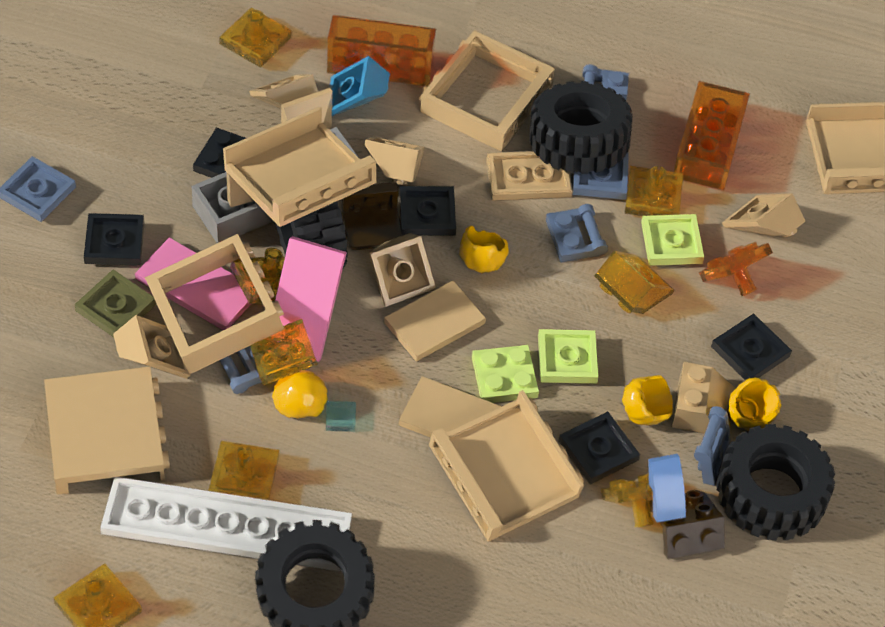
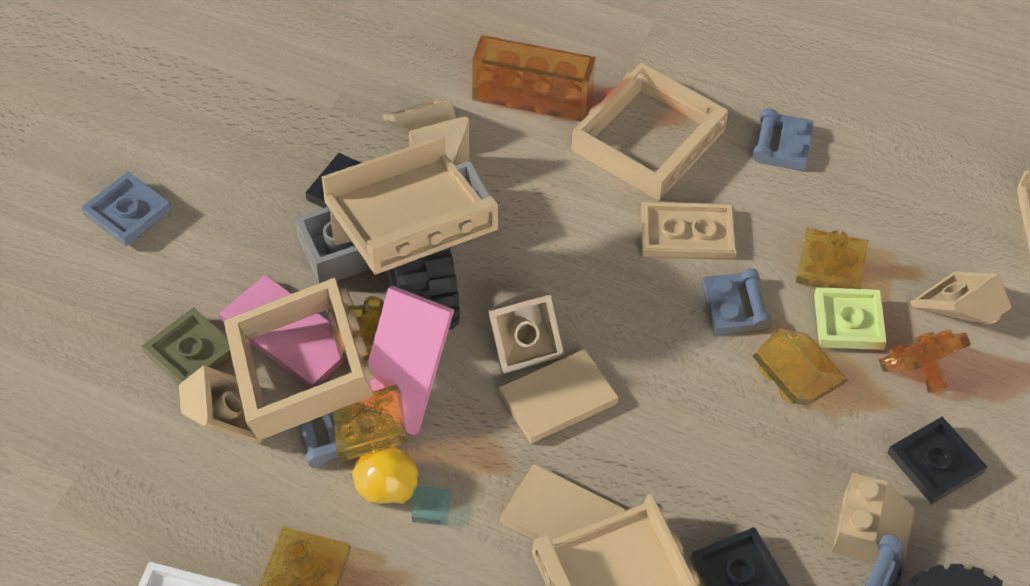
camera: 10 degrees right, 0 degrees up
(105, 426) = (149, 498): tan panel -> none
(114, 239) = (202, 272): black plate -> none
(255, 31) = (393, 50): clear yellow plate -> none
(358, 85) = (503, 116): dark azure slope -> none
(371, 216) = (499, 266): dark brown bracket -> none
(396, 158) = (535, 201): tan slope -> none
(427, 210) = (565, 264): black plate -> none
(483, 250) = (623, 315): yellow hair -> none
(504, 373) = (634, 468): yellowish green plate -> none
(567, 356) = (712, 452): yellowish green plate -> none
(580, 127) = (752, 179): black tyre -> none
(606, 184) = (771, 234): sand blue plate -> none
(648, 400) = (805, 517): yellow hair -> none
(711, 135) = (904, 198): clear orange brick -> none
(754, 403) = (937, 533): yellow hair -> none

